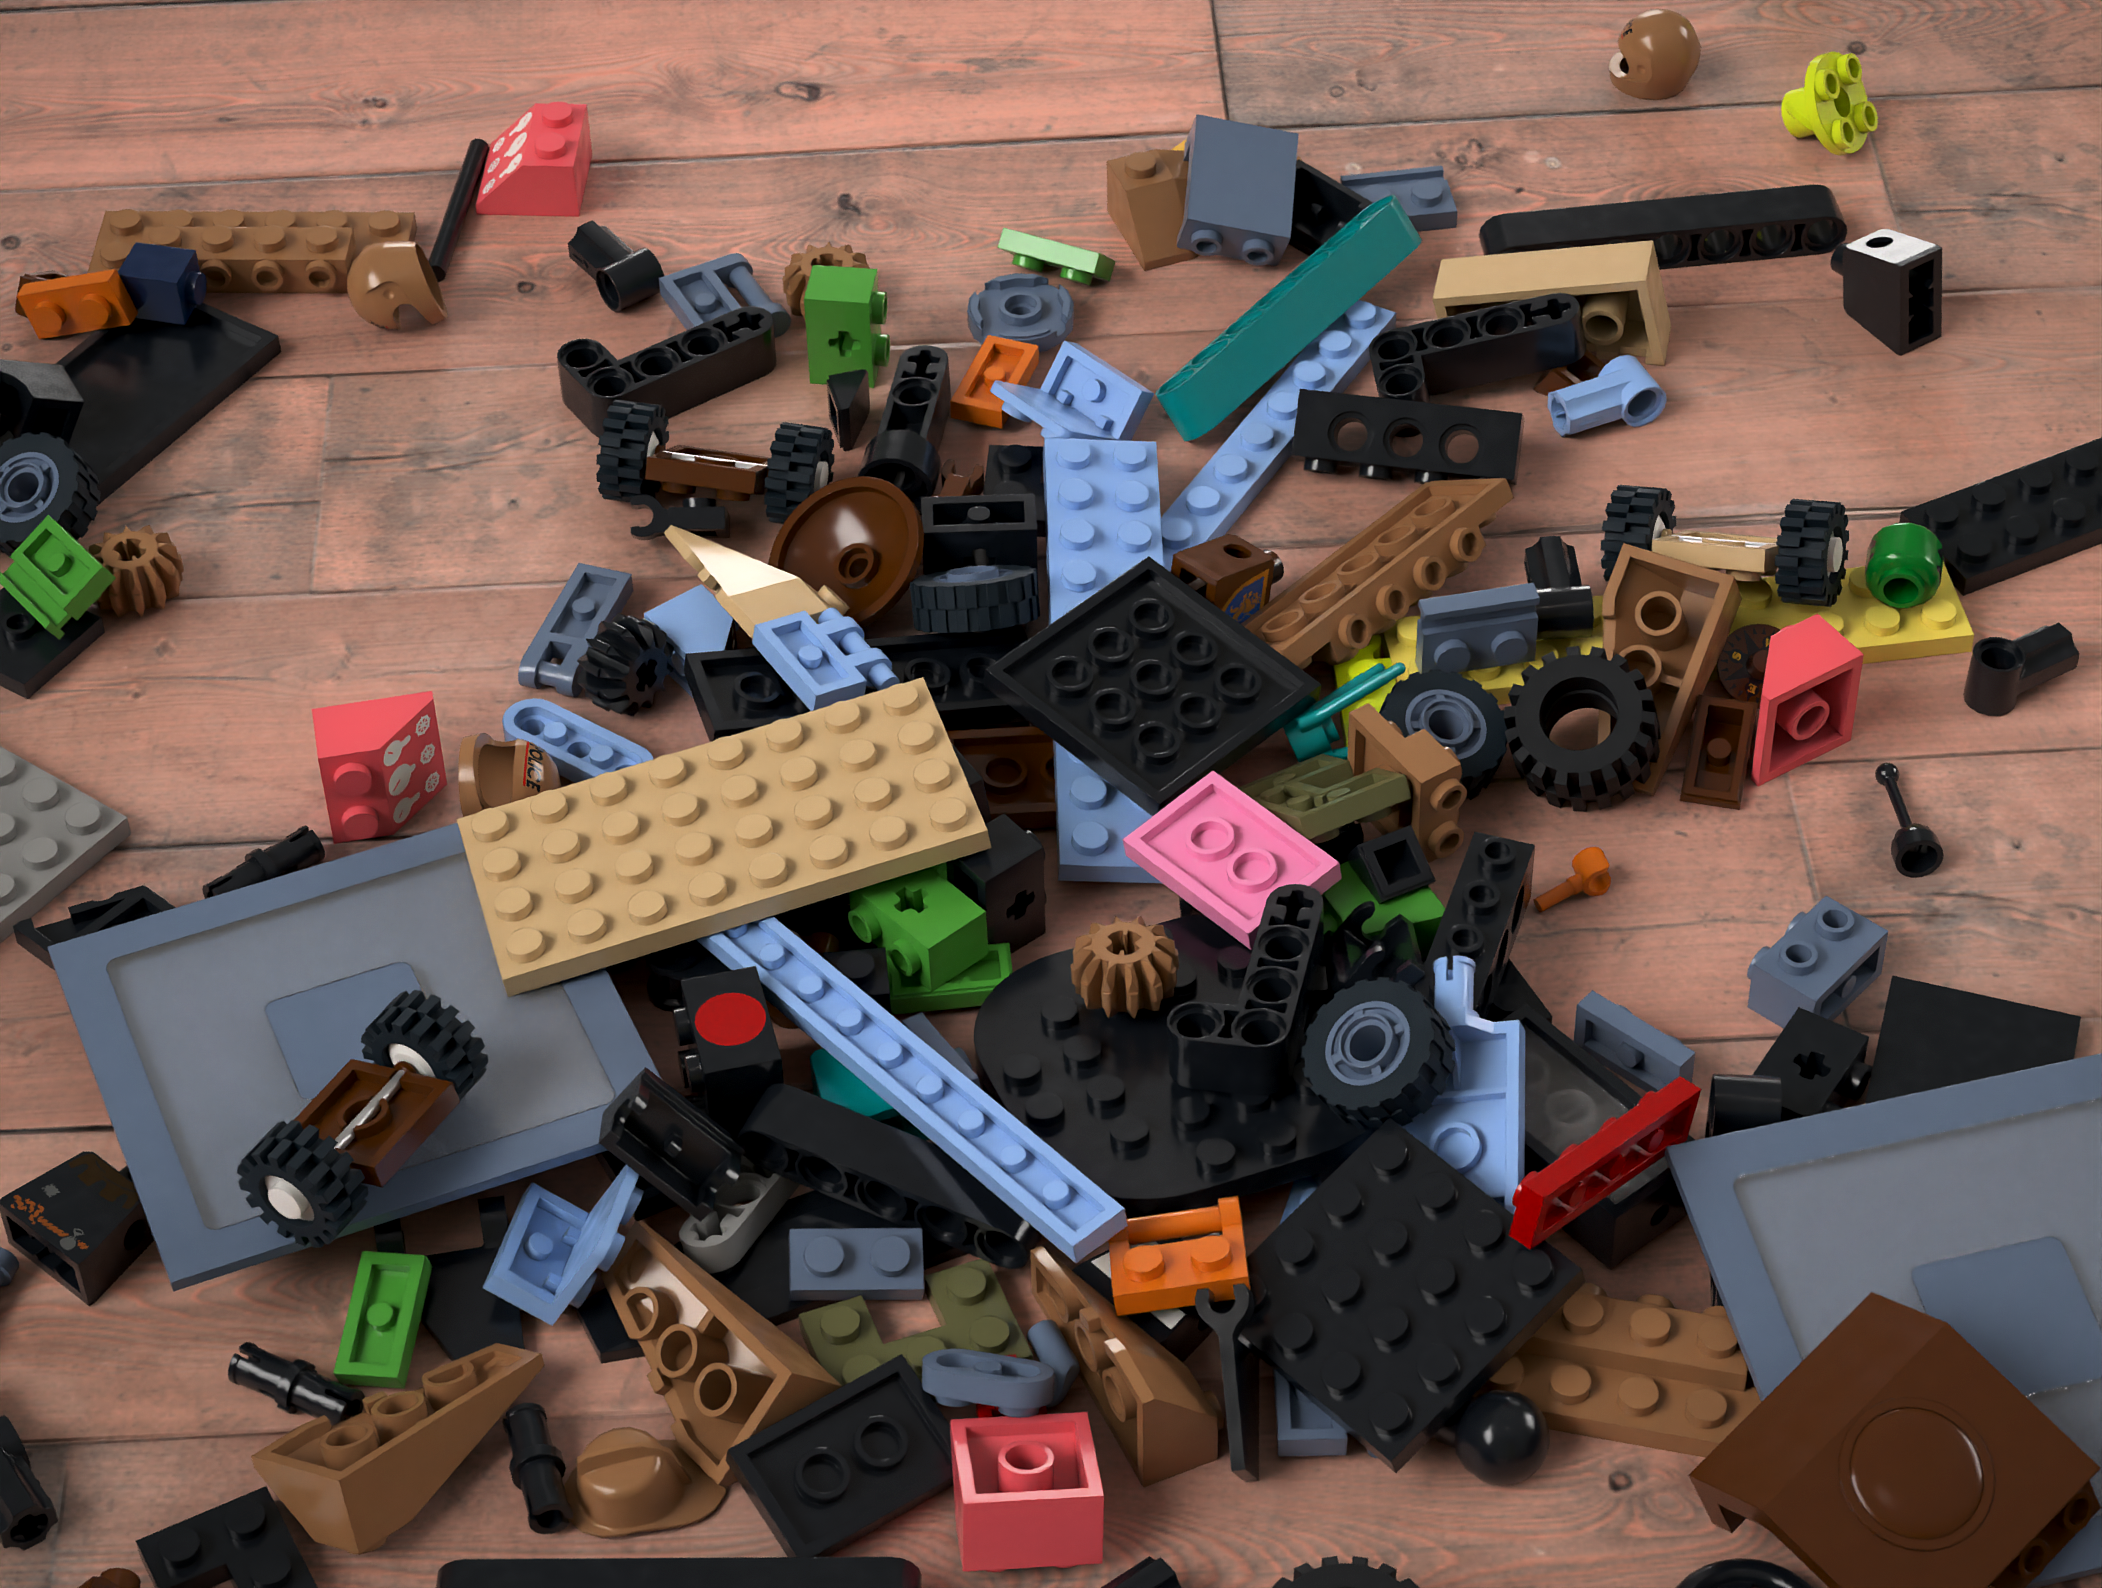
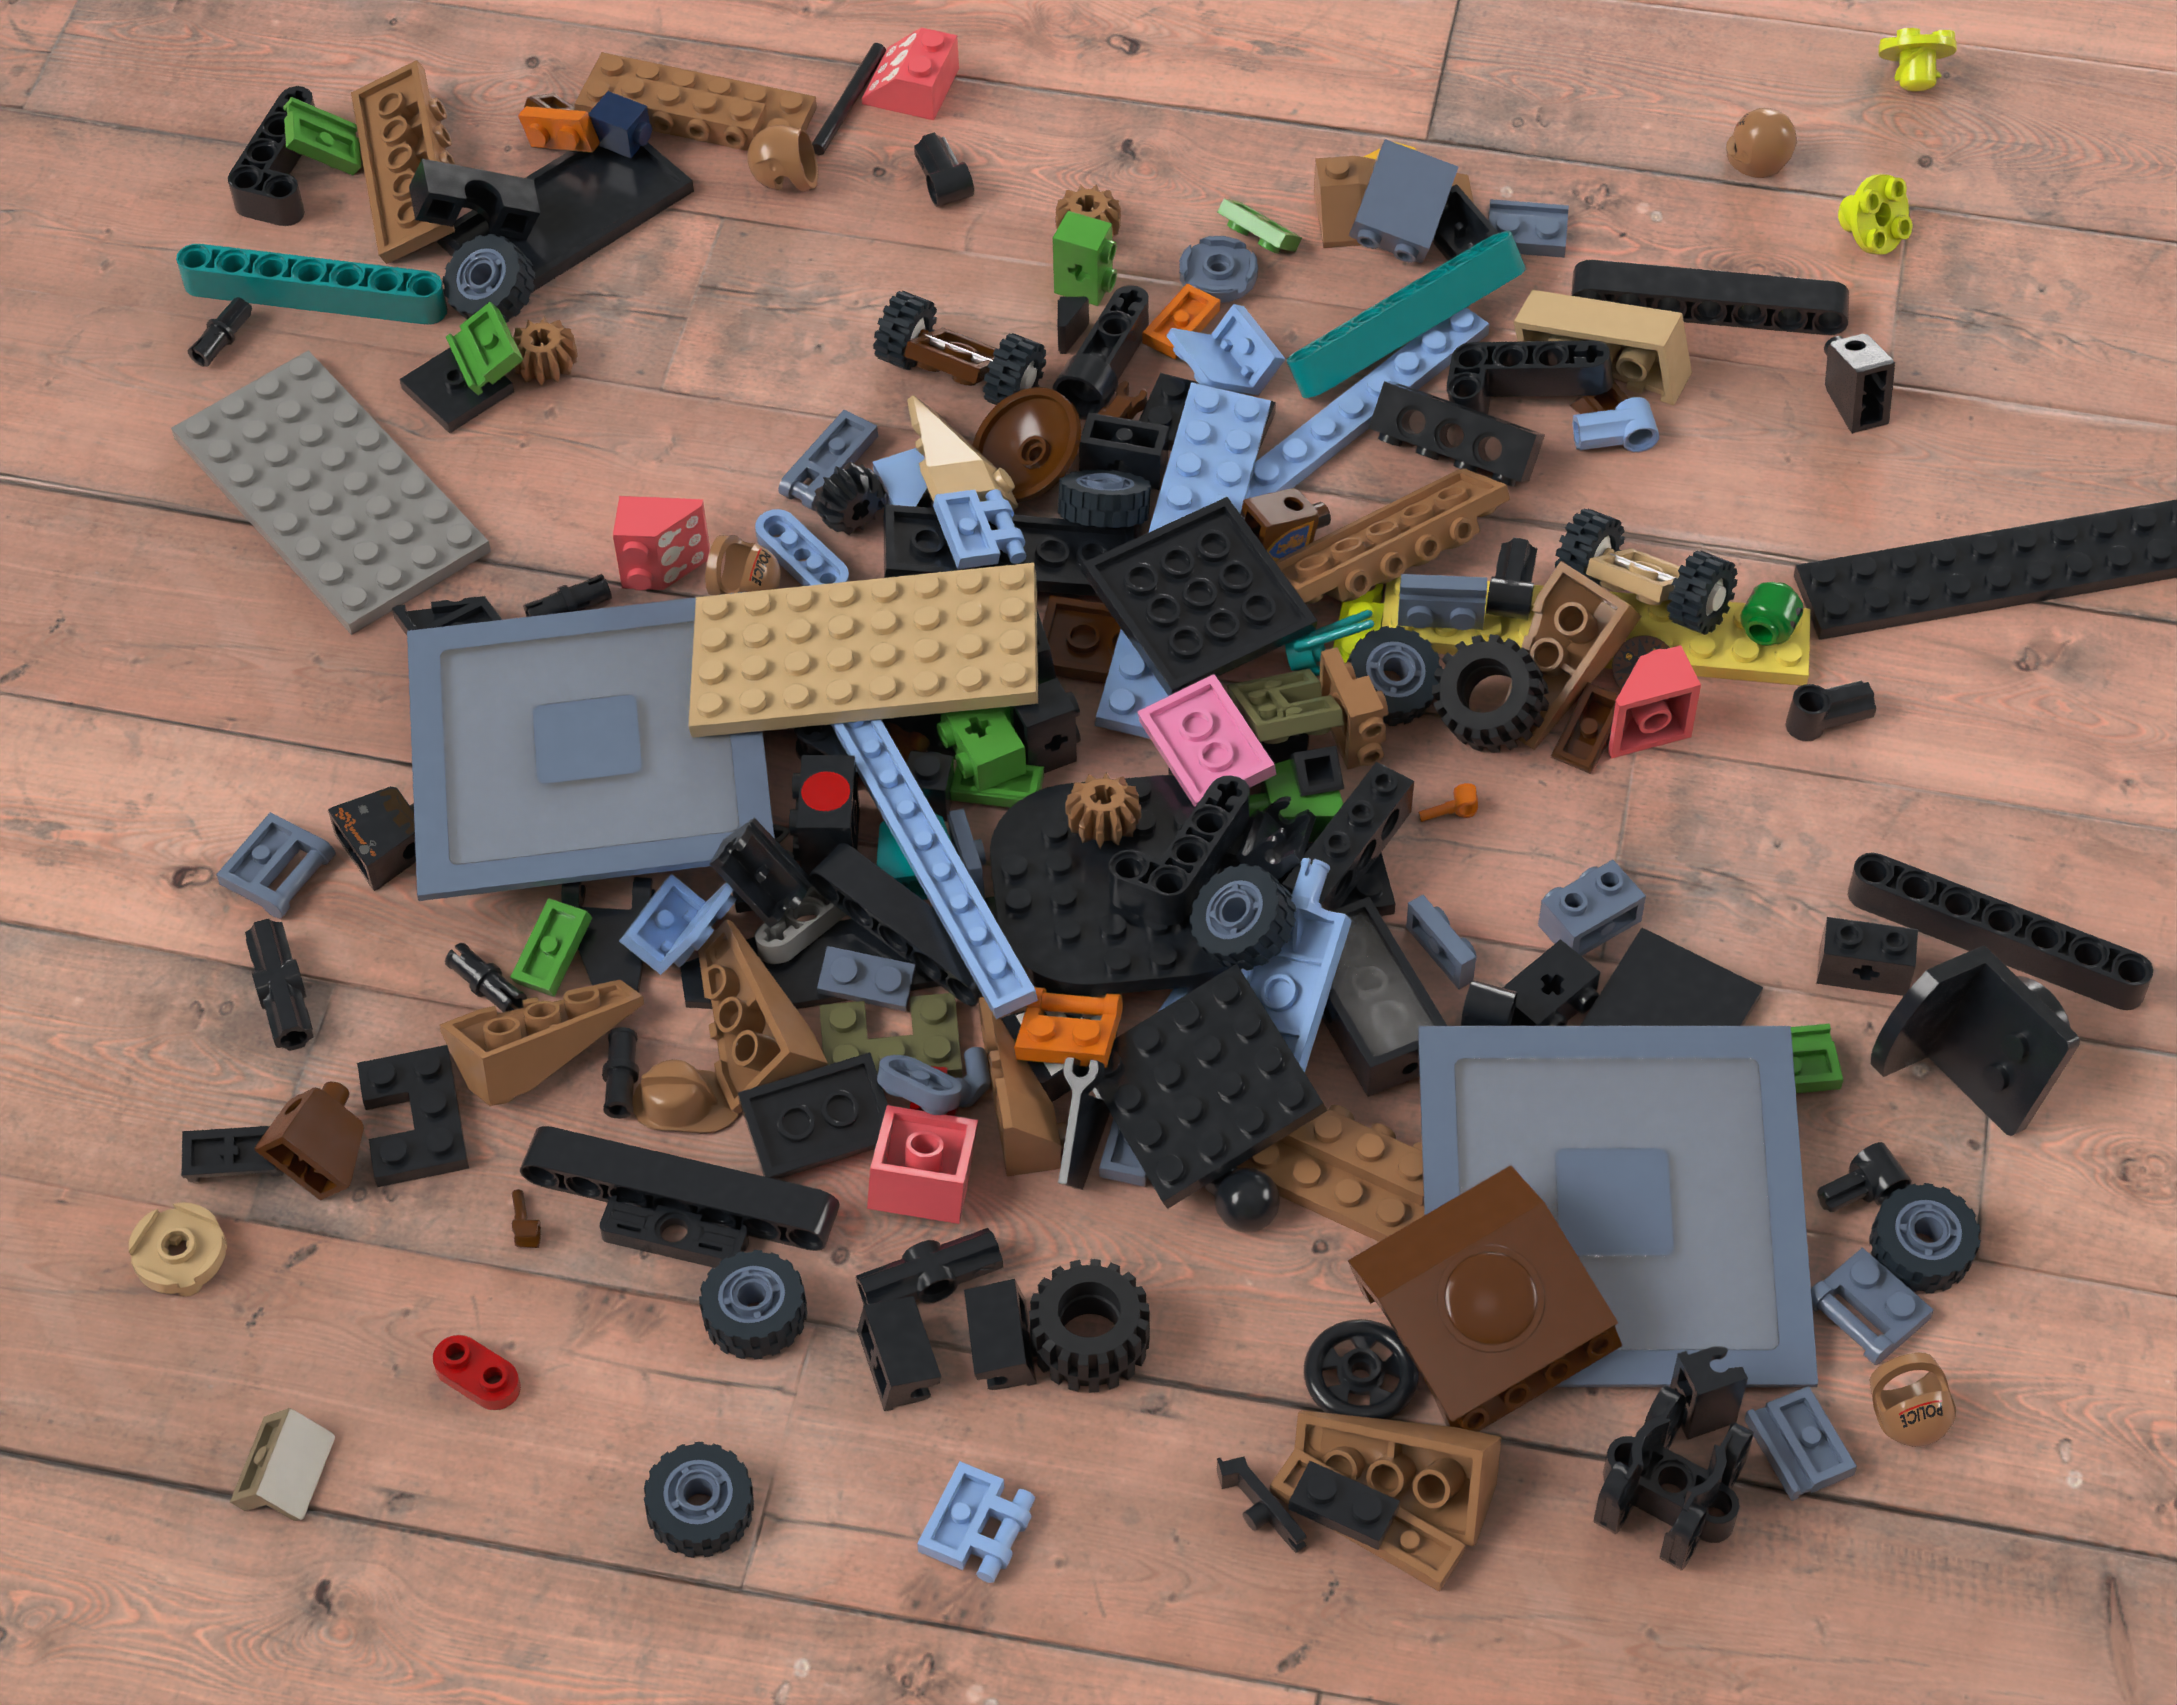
camera: 15 degrees right, 10 degrees up
(364, 1120) = (565, 812): plate -> none
(671, 373) = (955, 268): black beam -> none
(695, 516) = (935, 389): black plate -> none
(700, 292) = (998, 217): sand blue plate -> none
(1602, 1162) = (1366, 1030): red plate -> none
(1915, 846) = (1699, 832): black hinge -> none

